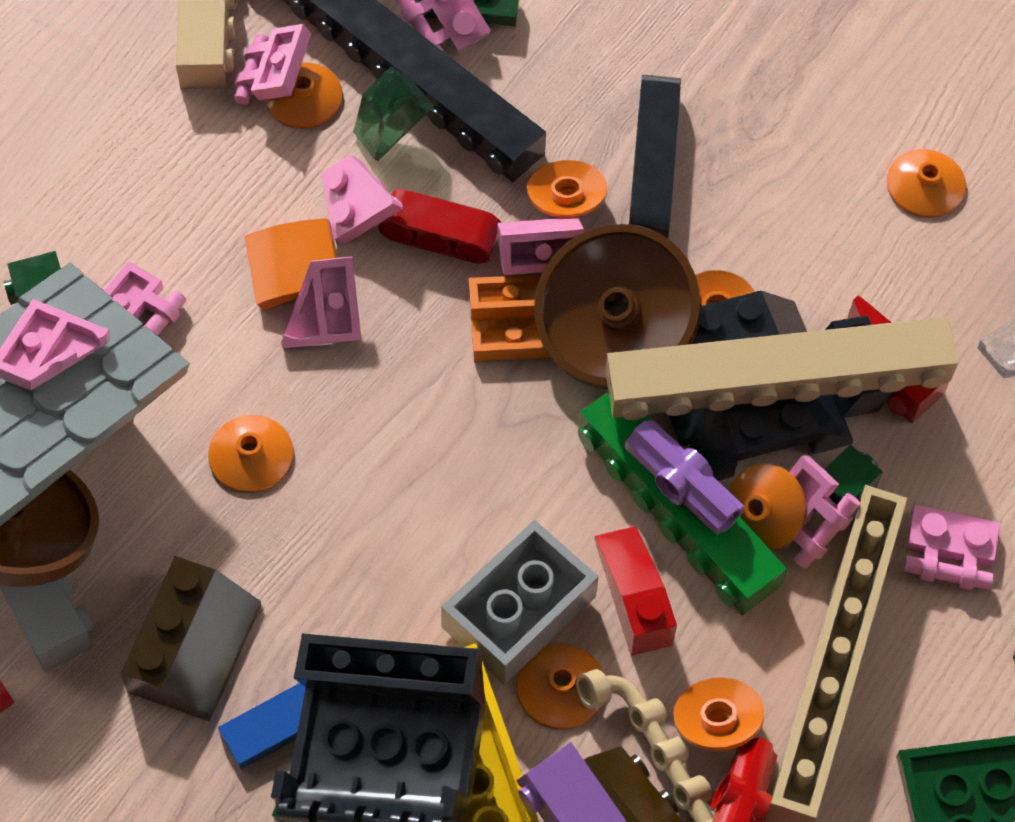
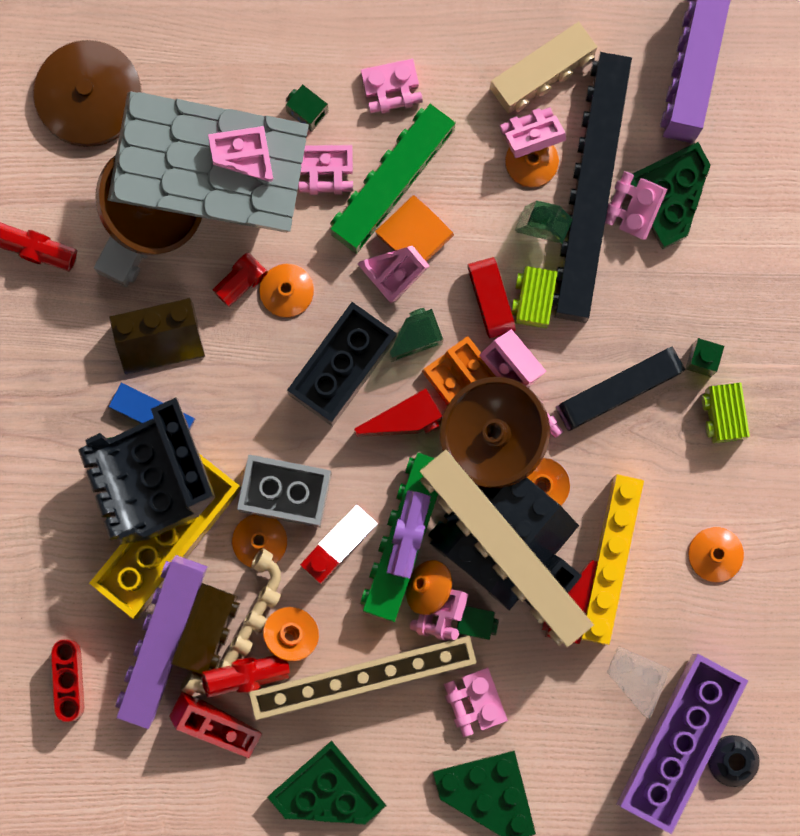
camera: 55 degrees right, 20 degrees up
(79, 178) = (389, 79): none -> bright pink plate
(194, 487) = (244, 275): none -> red piece
(207, 246) = (393, 178): none -> green brick
(355, 199) = (476, 239): bright pink wing -> none
(401, 434) = (342, 364): none -> black brick
(425, 331) = (416, 335): none -> clear green slope
(475, 177) = (535, 297): none -> lime brick
(524, 407) = (408, 417): none -> red slope
(567, 189) = (571, 345): orange dish -> none
(679, 50) = (704, 357): none -> dark green brick
(761, 70) = (725, 413): none -> lime brick
(845, 266) = (612, 556): none -> yellow brick

